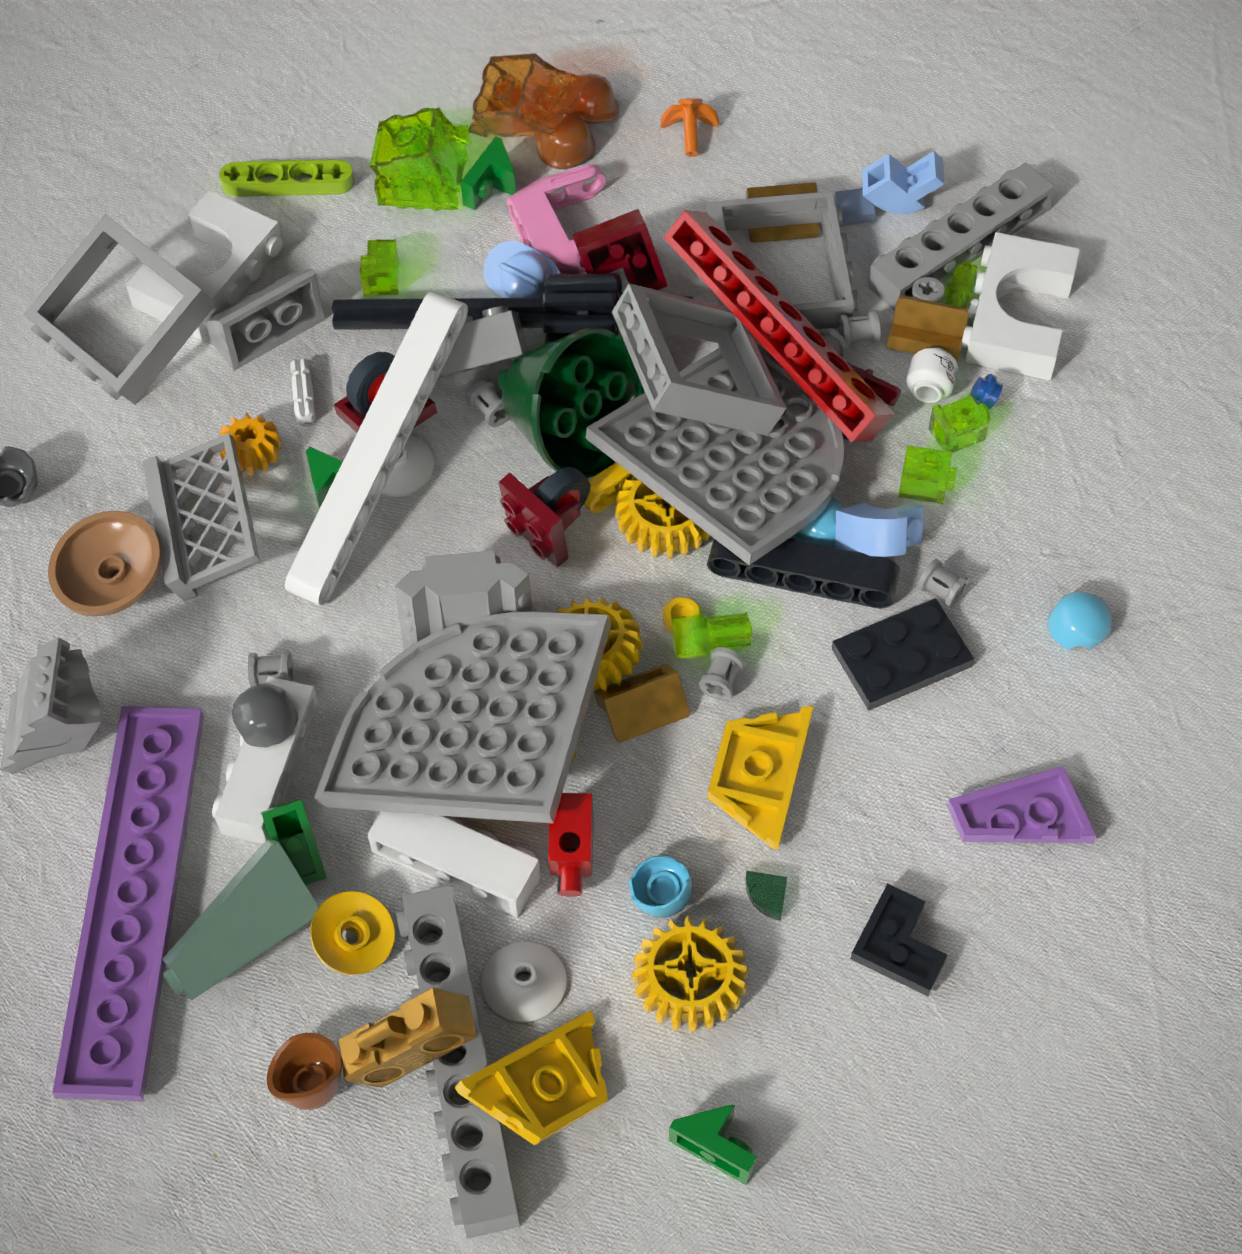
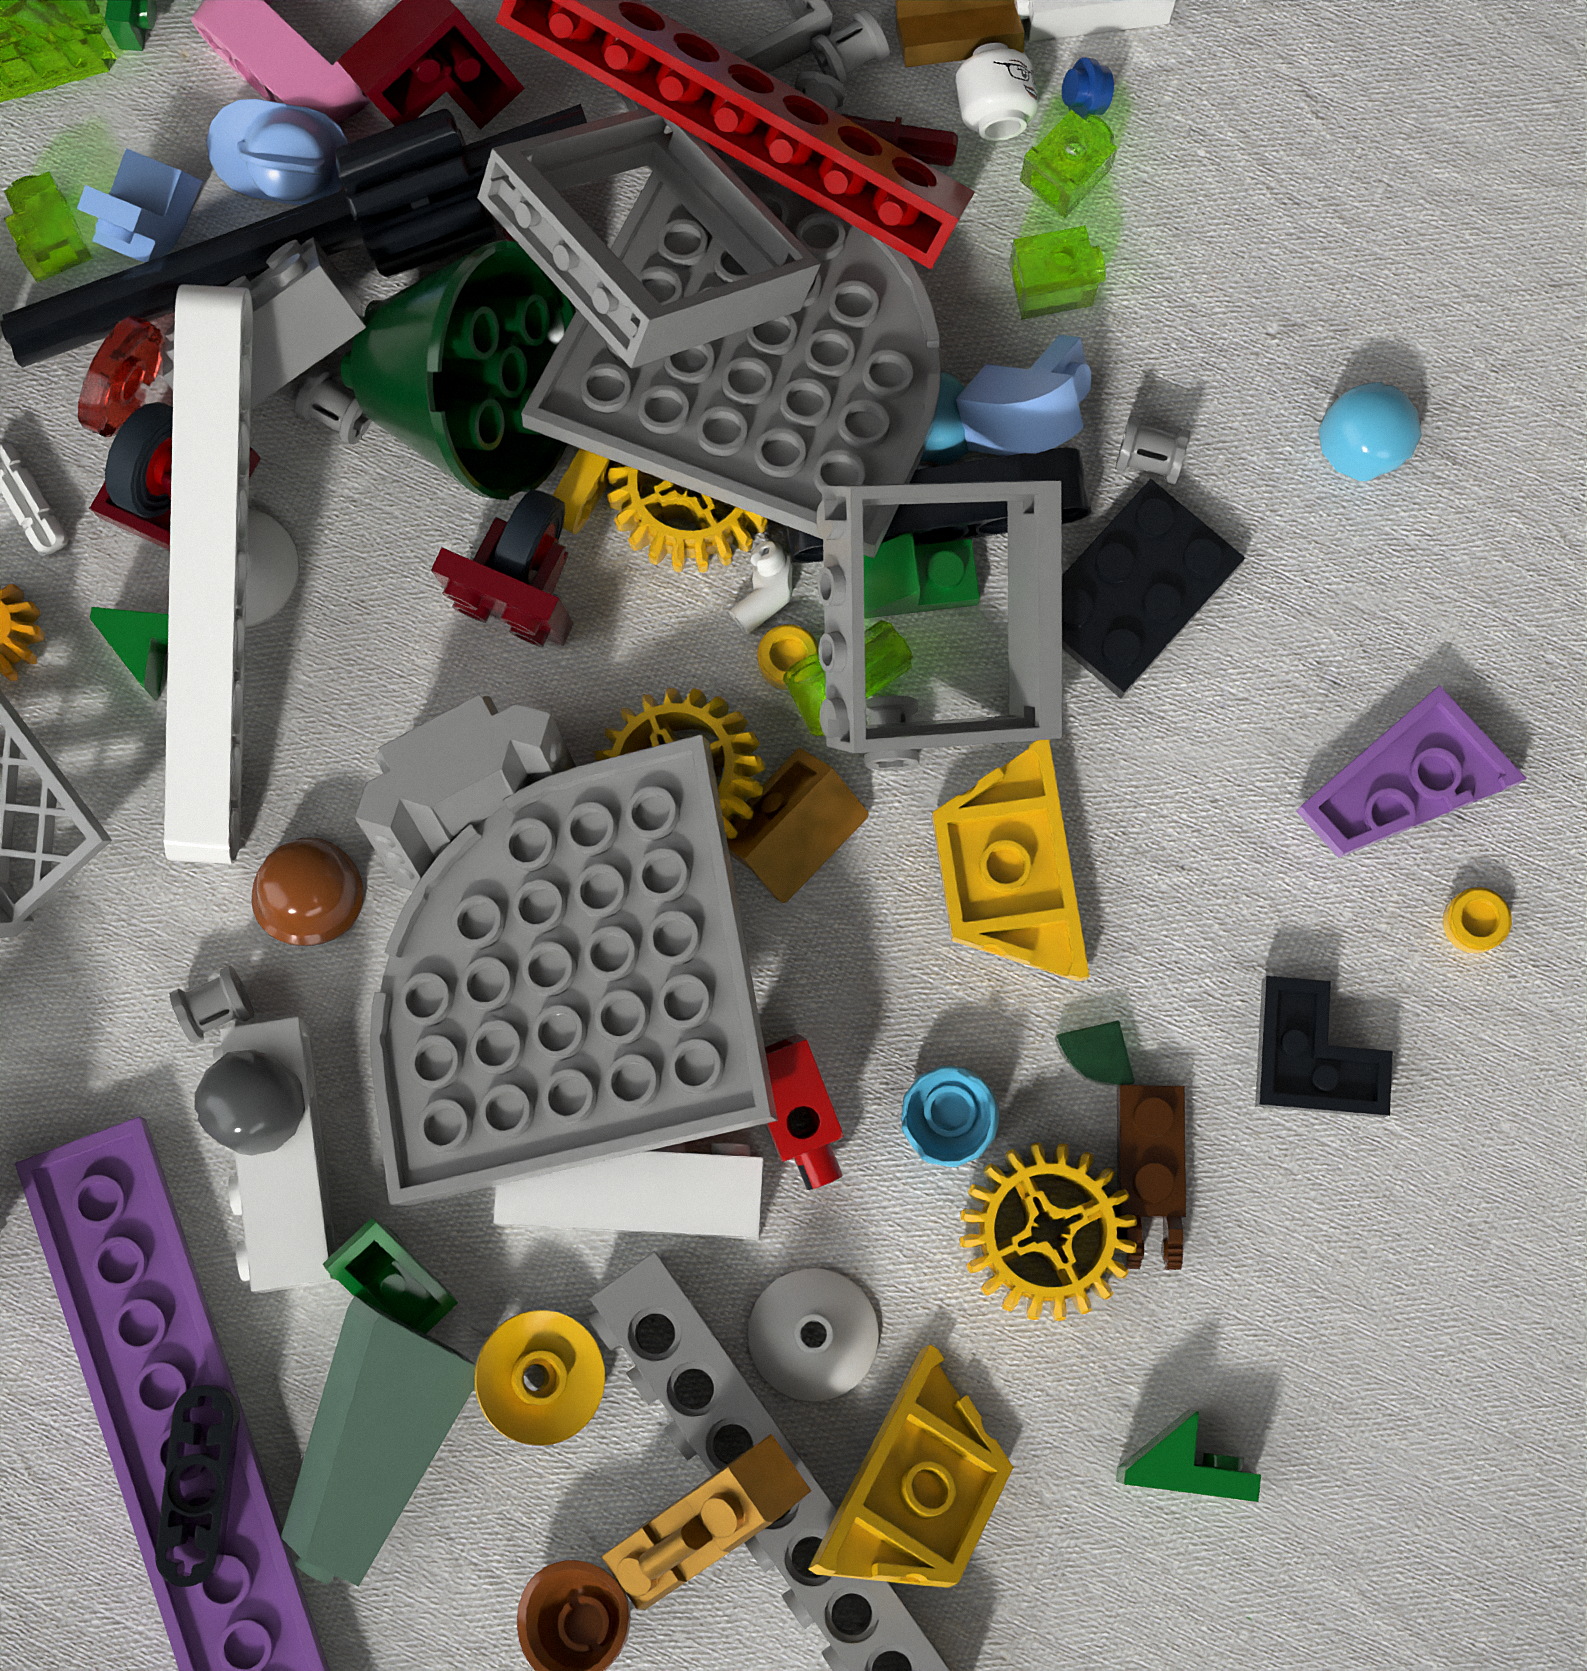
camera: 25 degrees left, 20 degrees up
(103, 926) = (206, 1537): none -> black beam
(352, 633) = (307, 892): none -> dark orange helmet
(381, 335) = (118, 369): none -> clear red tile
(437, 271) = (143, 209): none -> light blue brick
(688, 577) = (770, 587): none -> white arm
(771, 967) = (1152, 1166): none -> reddish brown hinge
(773, 602) = (919, 577): none -> green slope
(834, 623) = (1032, 617): none -> light grey window
(1034, 908) = (1477, 920): none -> yellow tile

